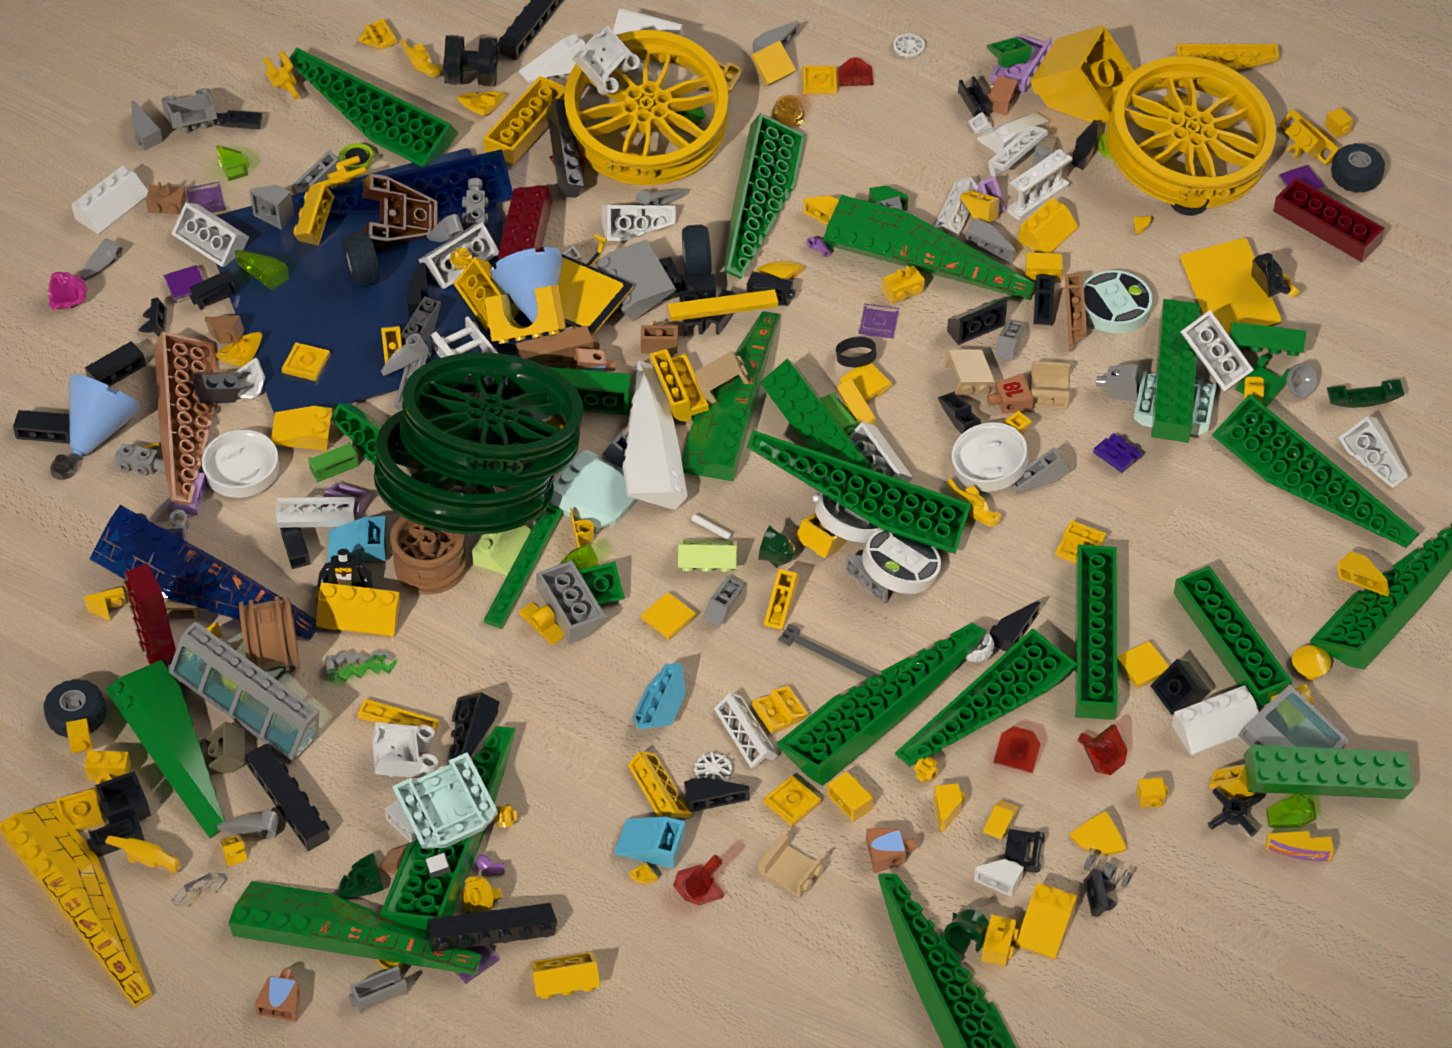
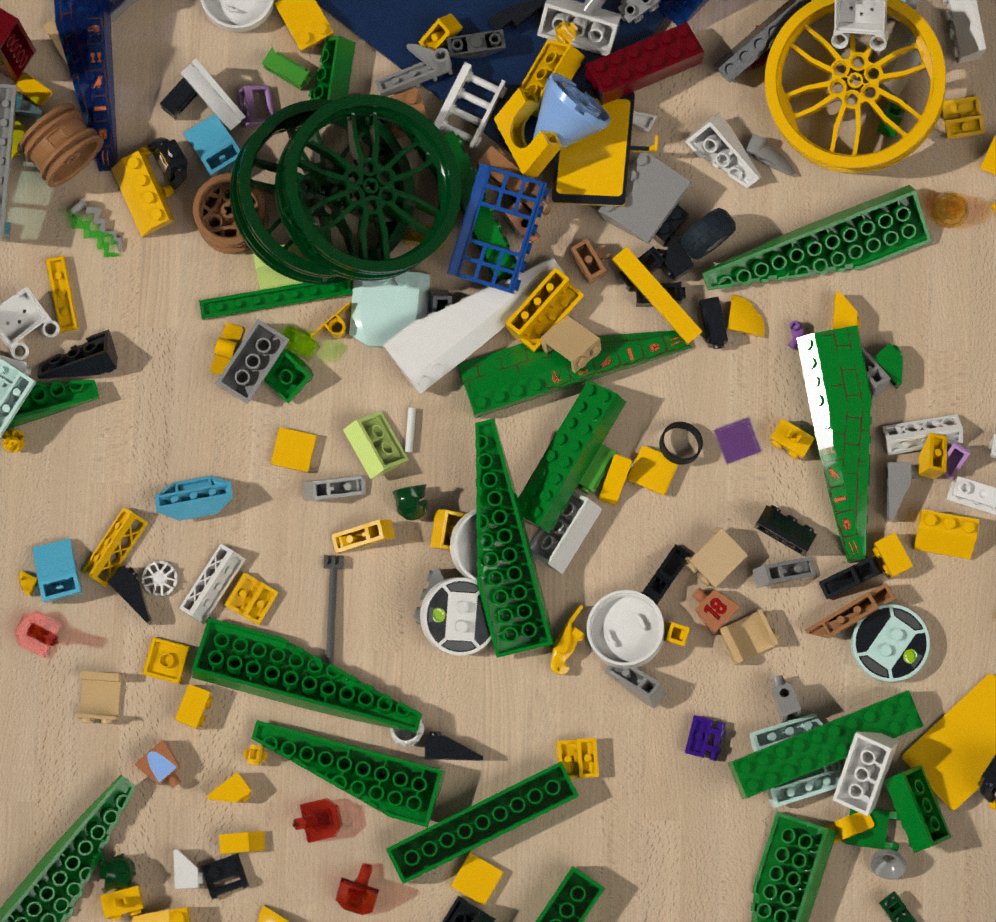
camera: 60 degrees right, 30 degrees up
(592, 402) = (469, 222): none -> blue window

